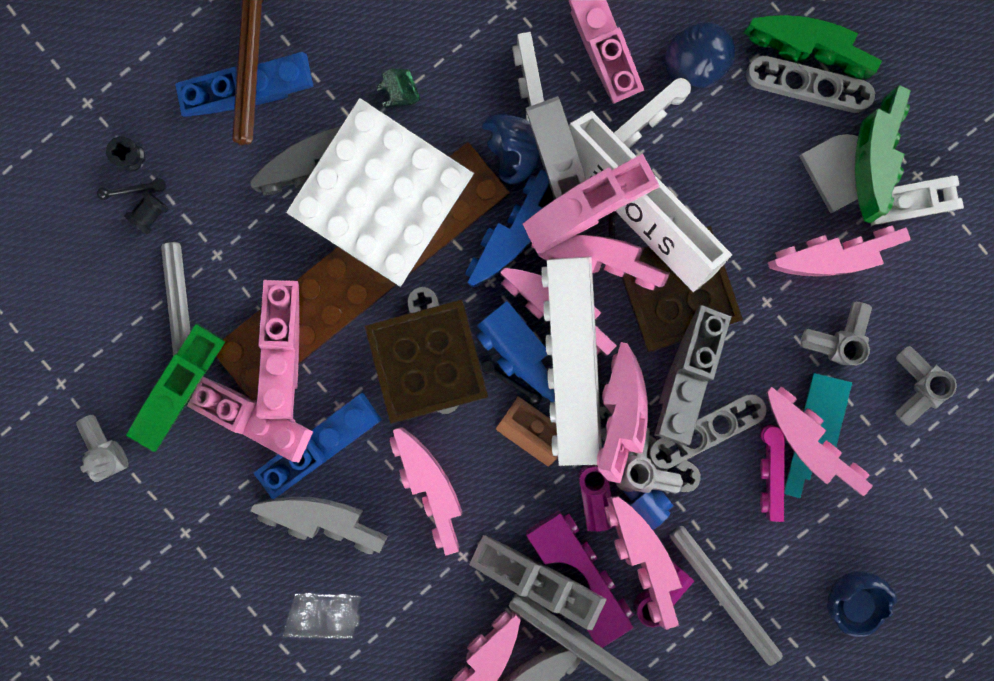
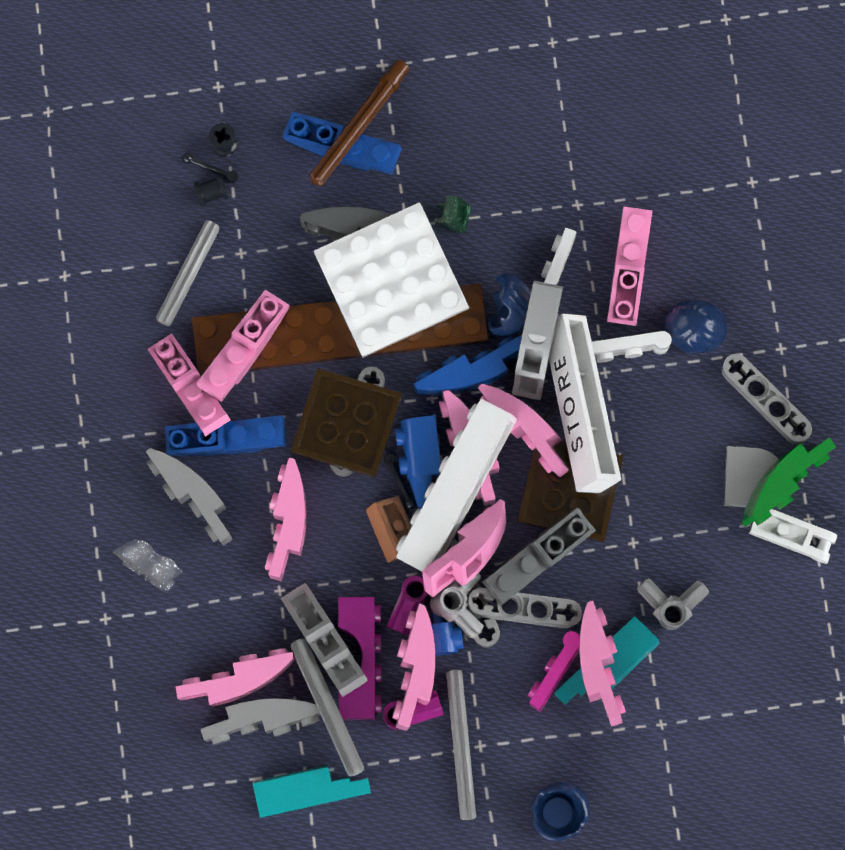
camera: 30 degrees right, 10 degrees down
(102, 457) = (62, 346): light grey axle -> none
(175, 387) = (148, 329): green slope -> none
(589, 202) = (538, 375): bright pink slope -> none
(800, 36) = (779, 358): green slope -> none
(830, 259) = (696, 535): bright pink slope -> none
(924, 397) = (718, 670): light grey axle -> none

